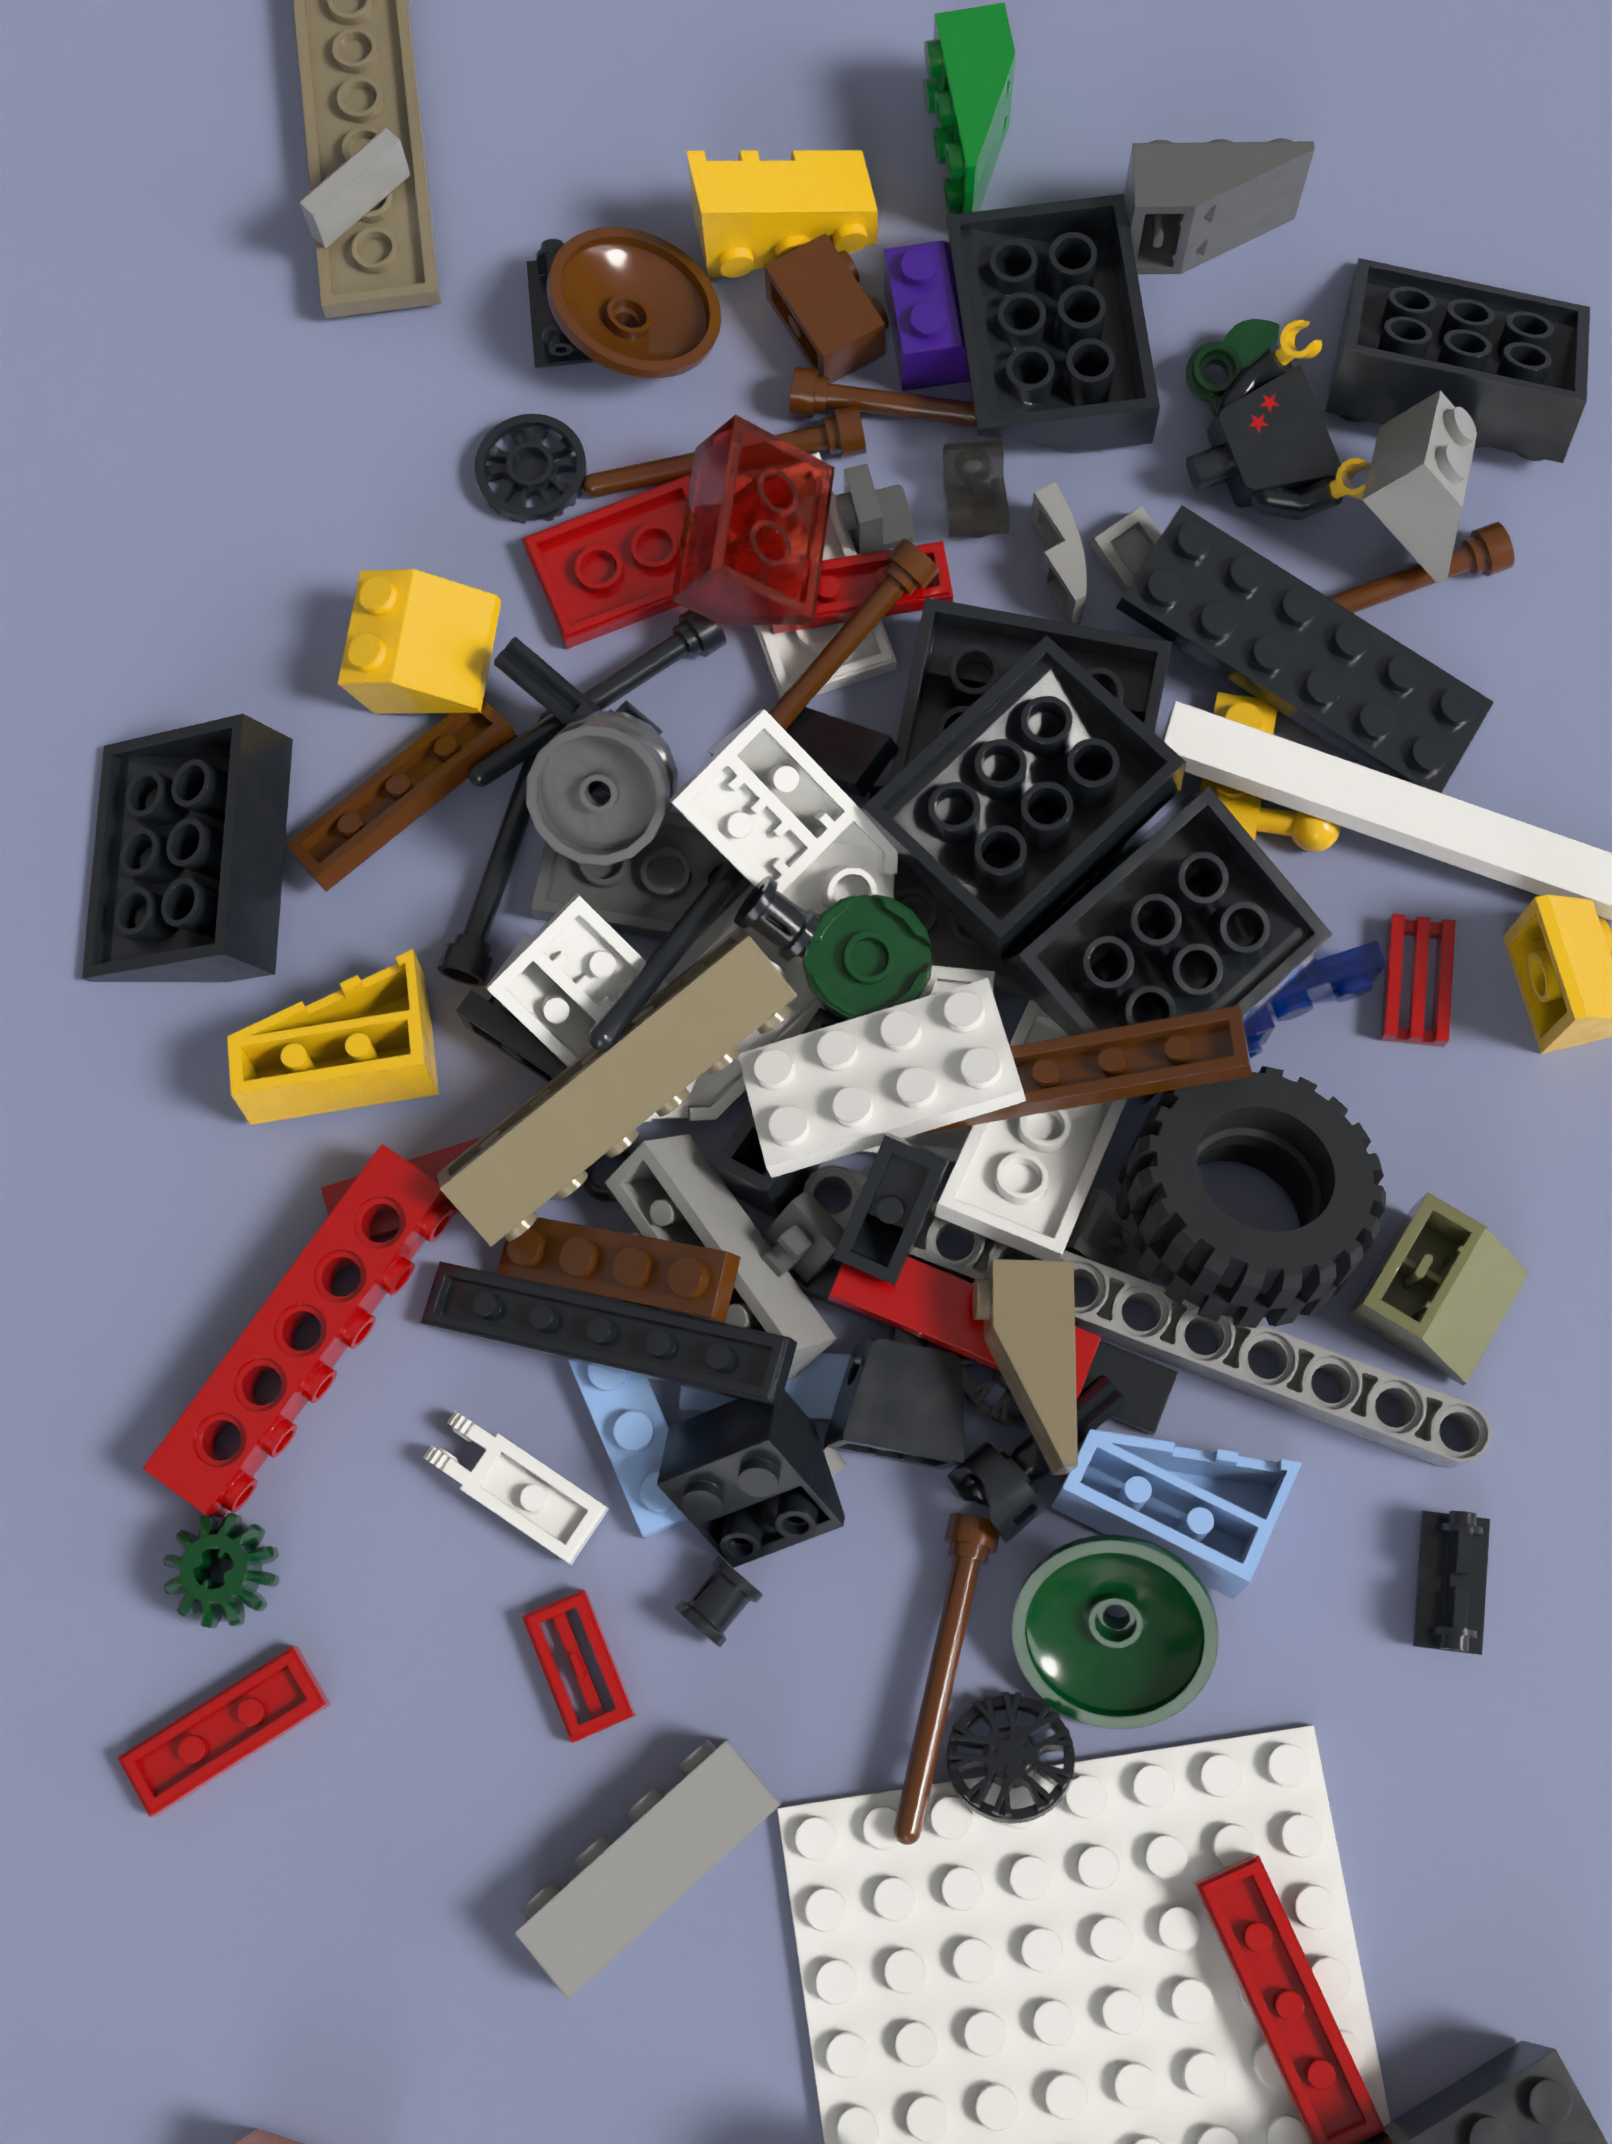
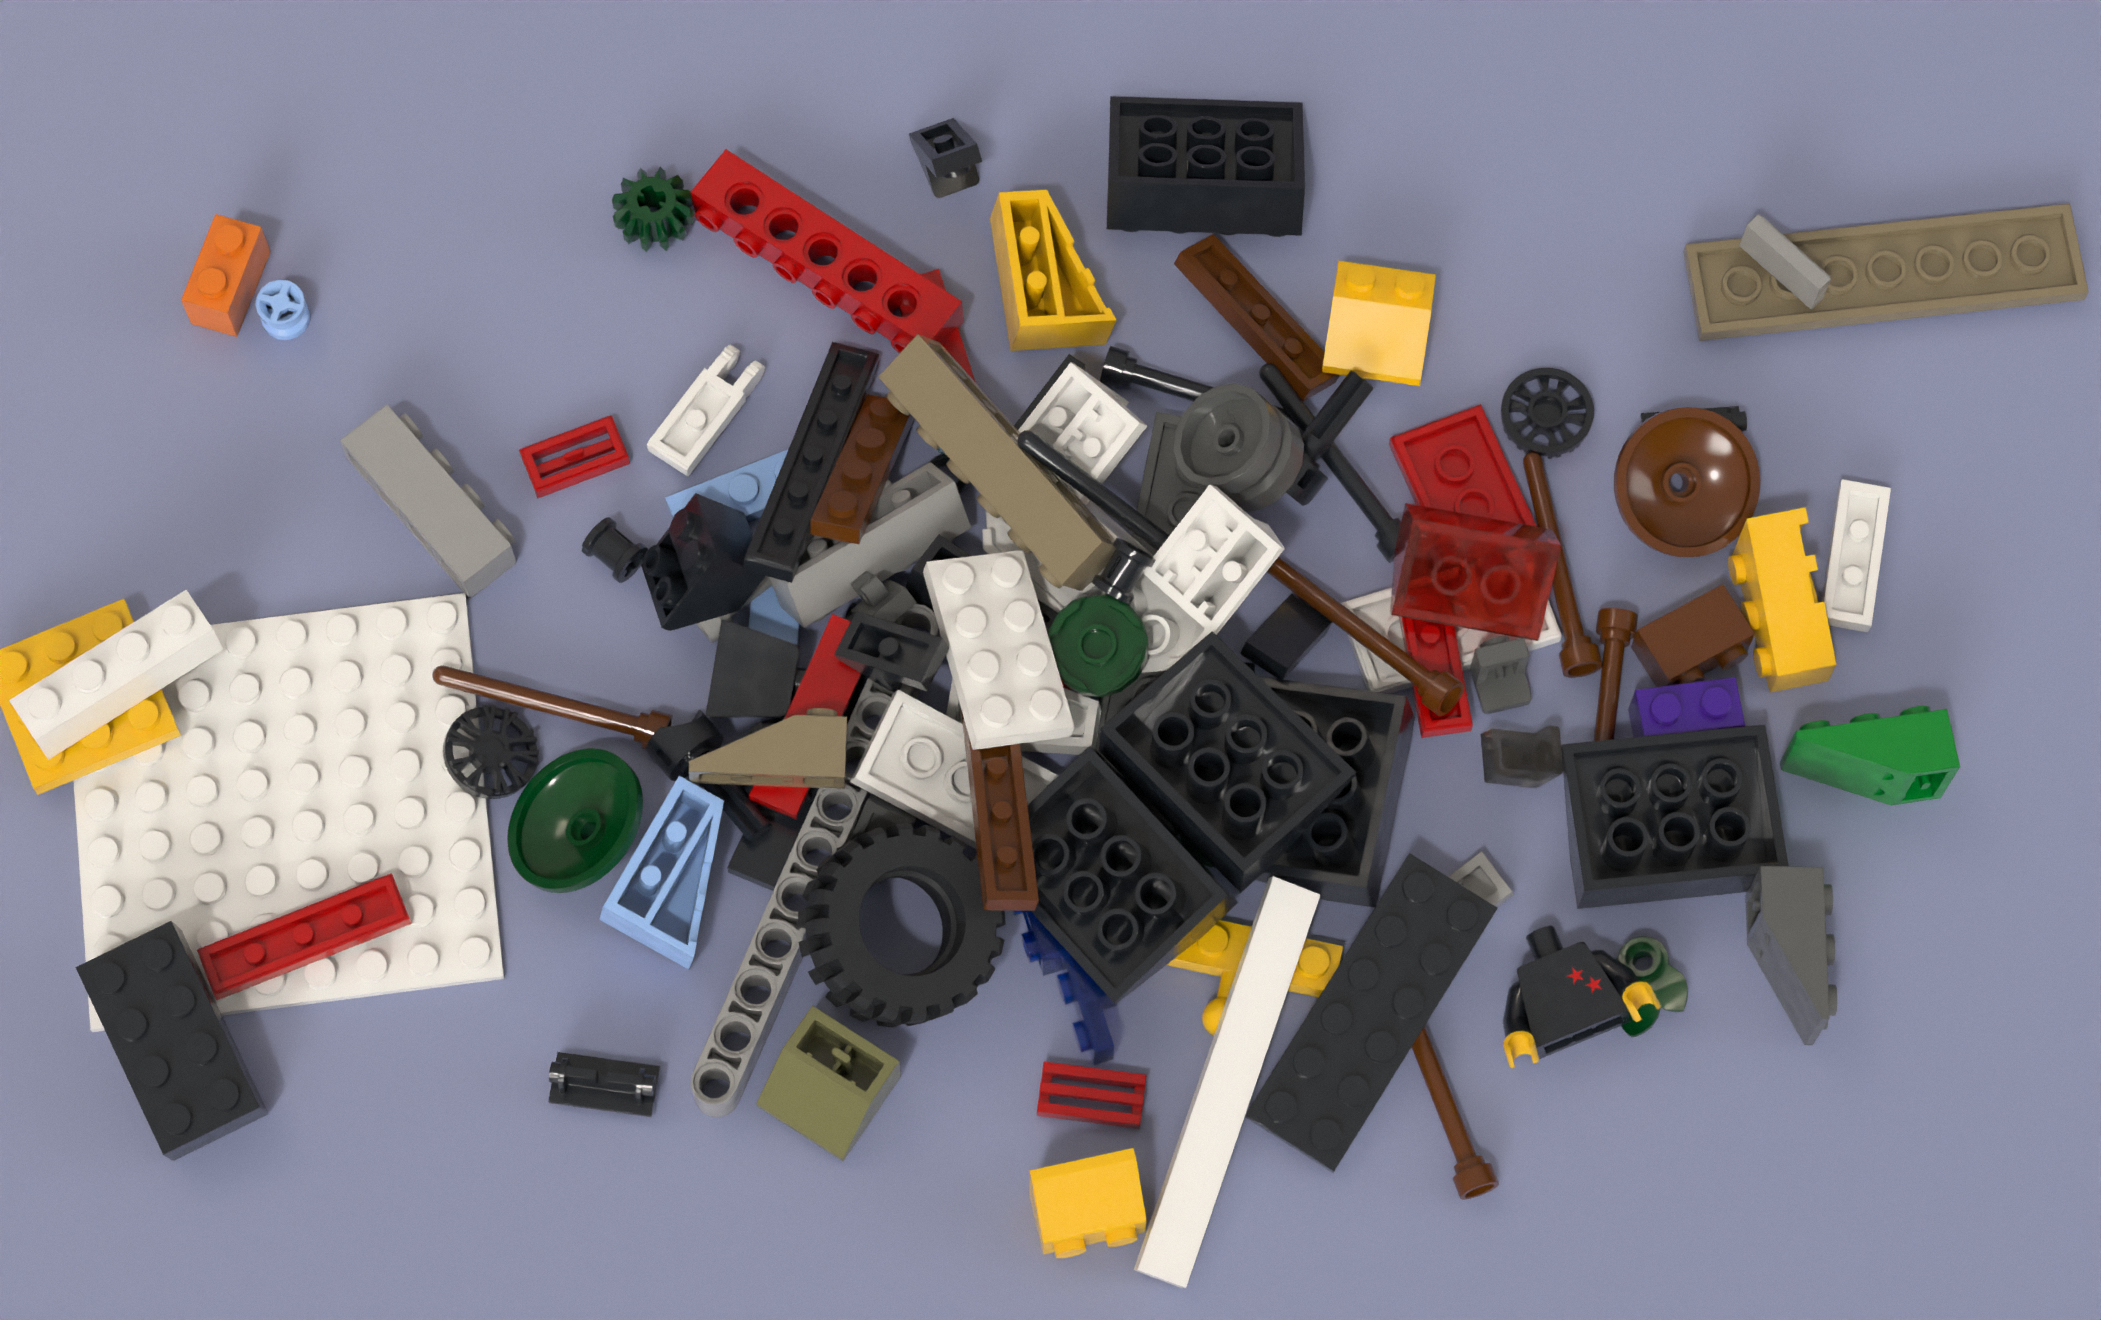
camera: 85 degrees right, 5 degrees down
(157, 1179) = (947, 157): none -> black slope
(223, 1731) = (541, 219): red tile -> none
(348, 2116) = (276, 299): none -> light blue wheel
(665, 132) = (1855, 554): none -> white plate
(1064, 561) = (1454, 828): light grey slope -> none
(1422, 479) = (1514, 1105): light grey slope -> none
(1489, 349) = (1659, 1166): black slope -> none

